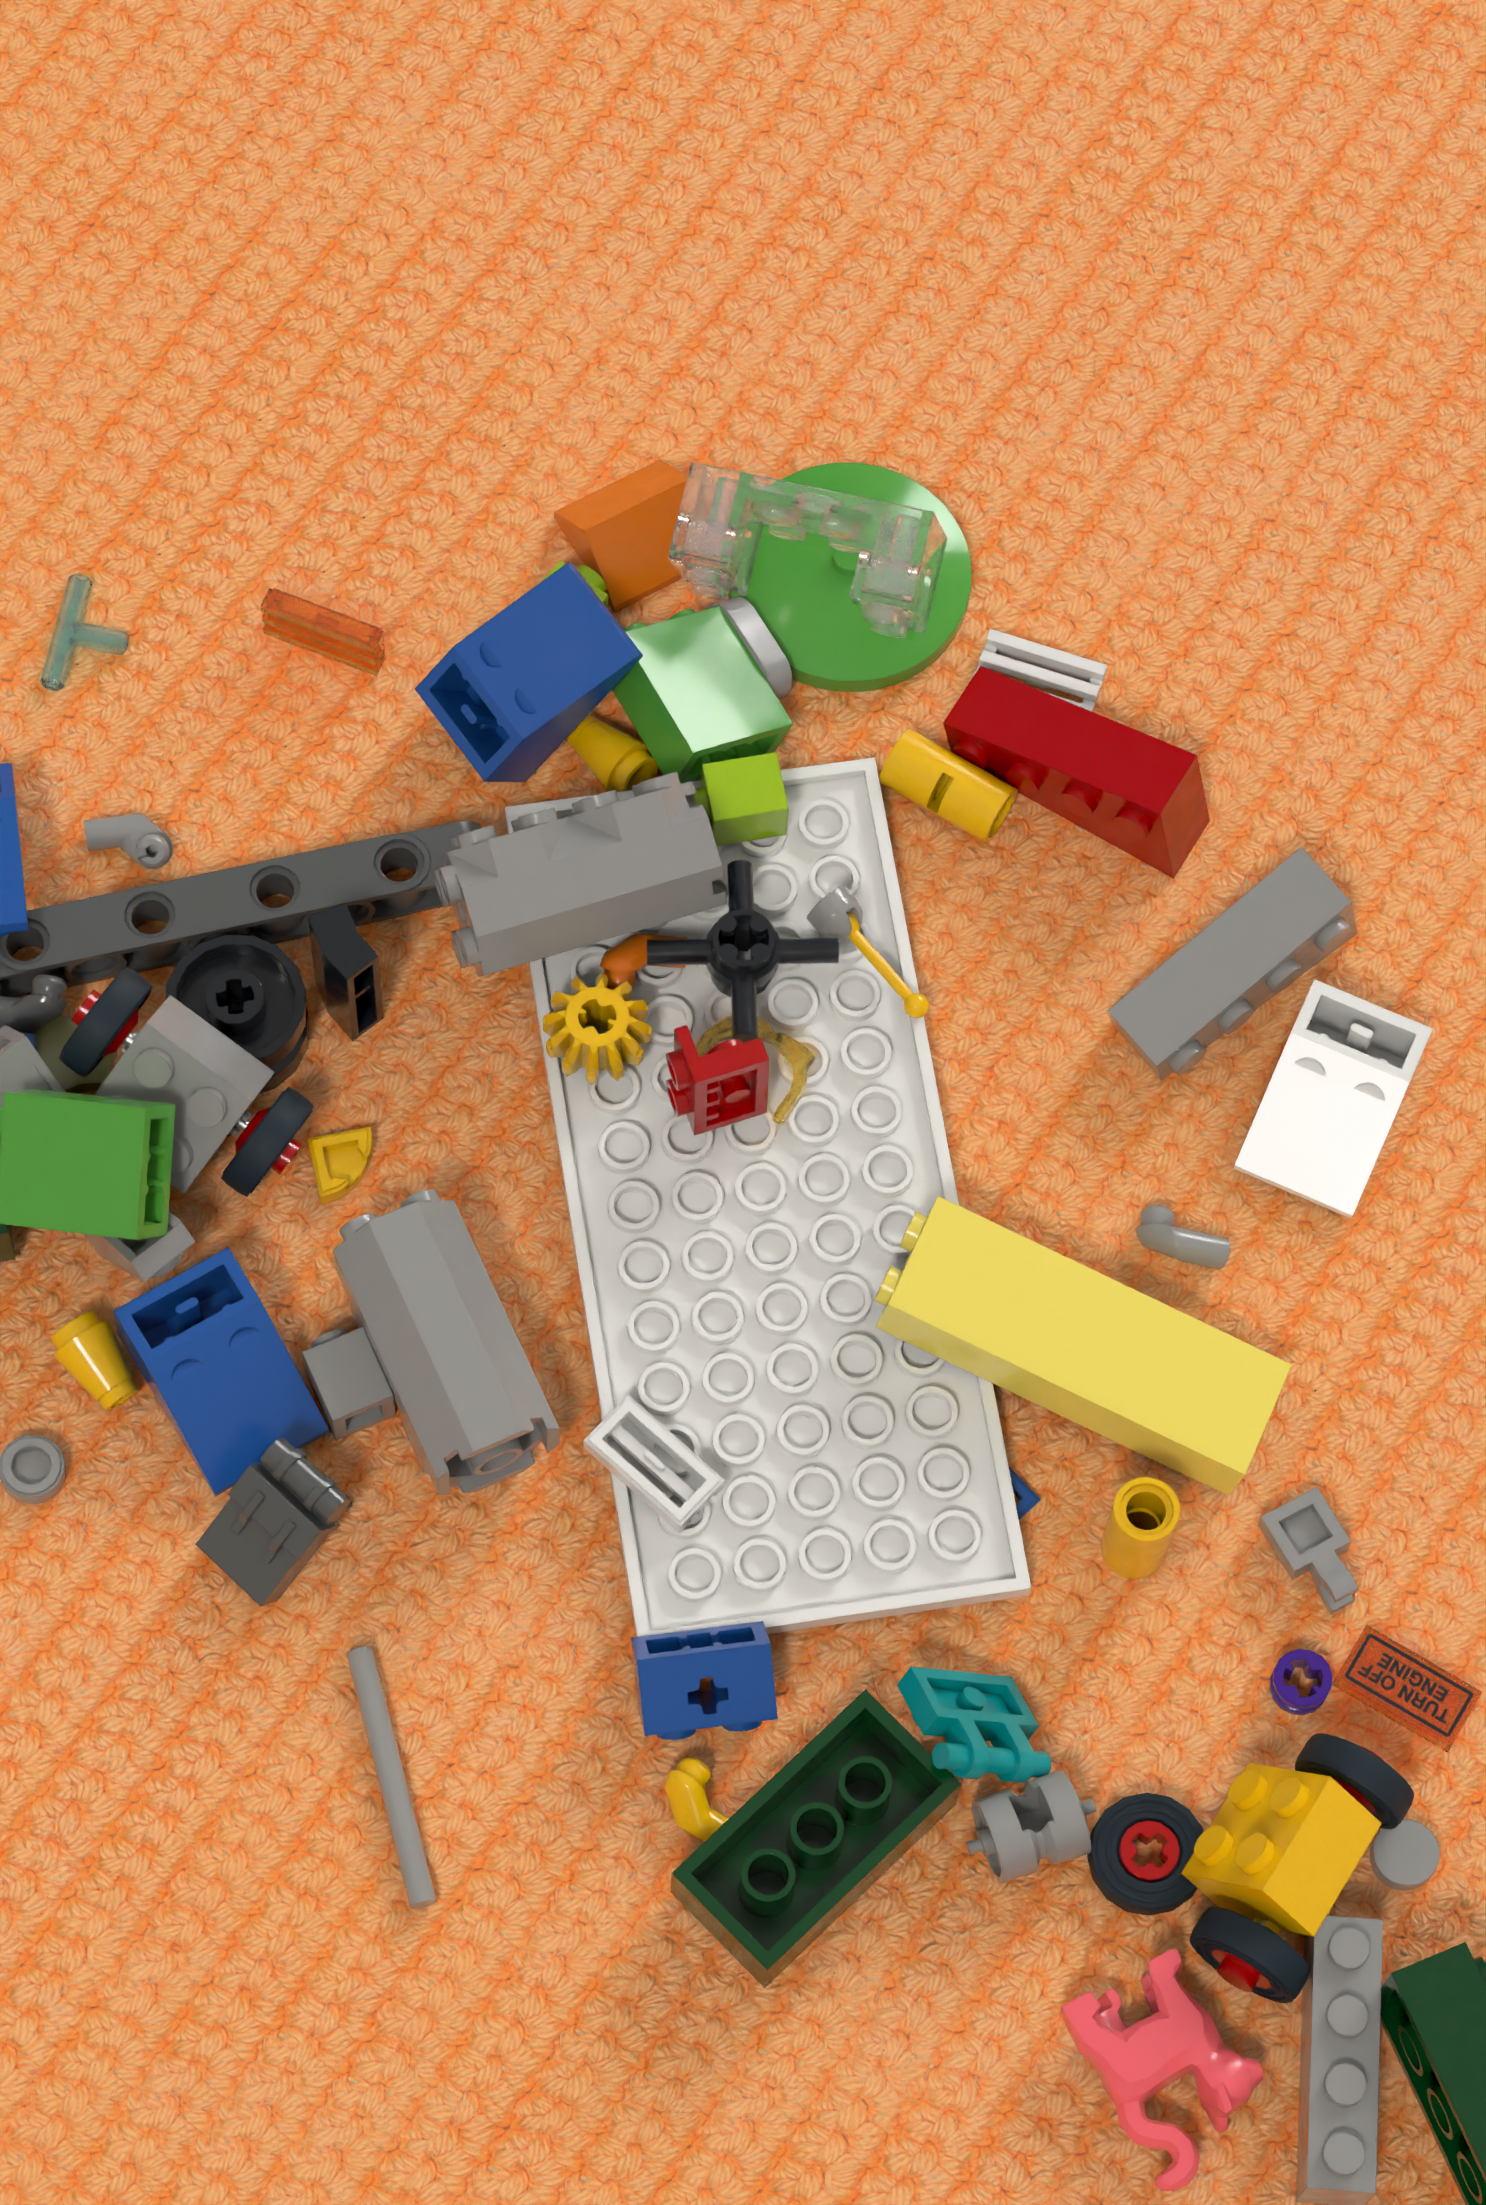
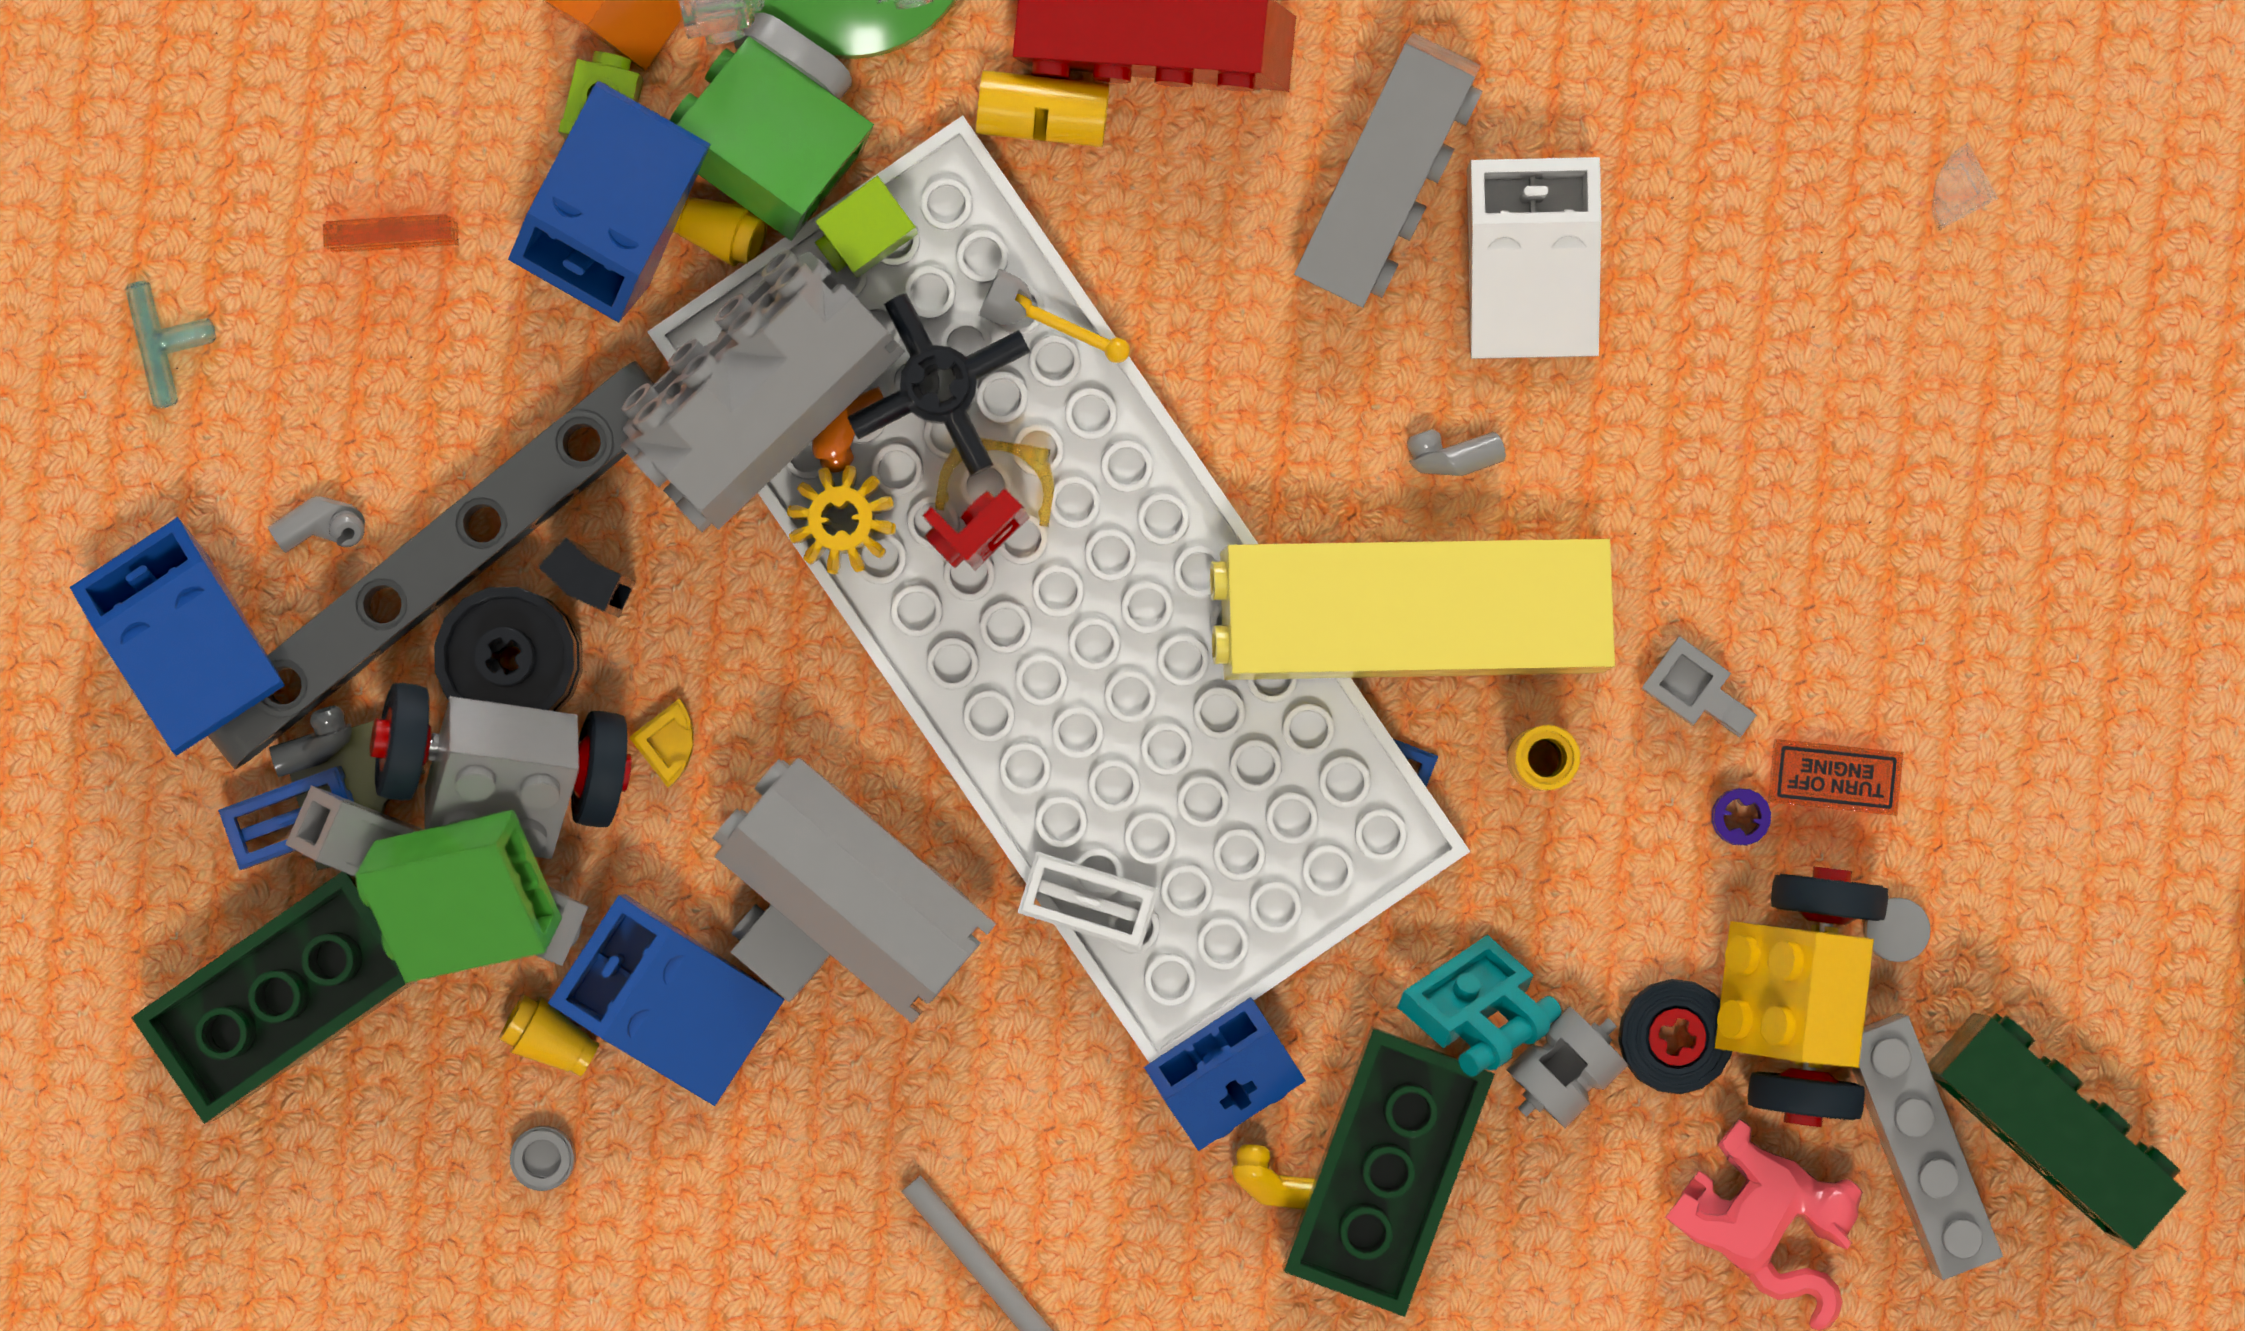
camera: 15 degrees left, 20 degrees up
(274, 1522) = (785, 1112): dark grey piece -> none

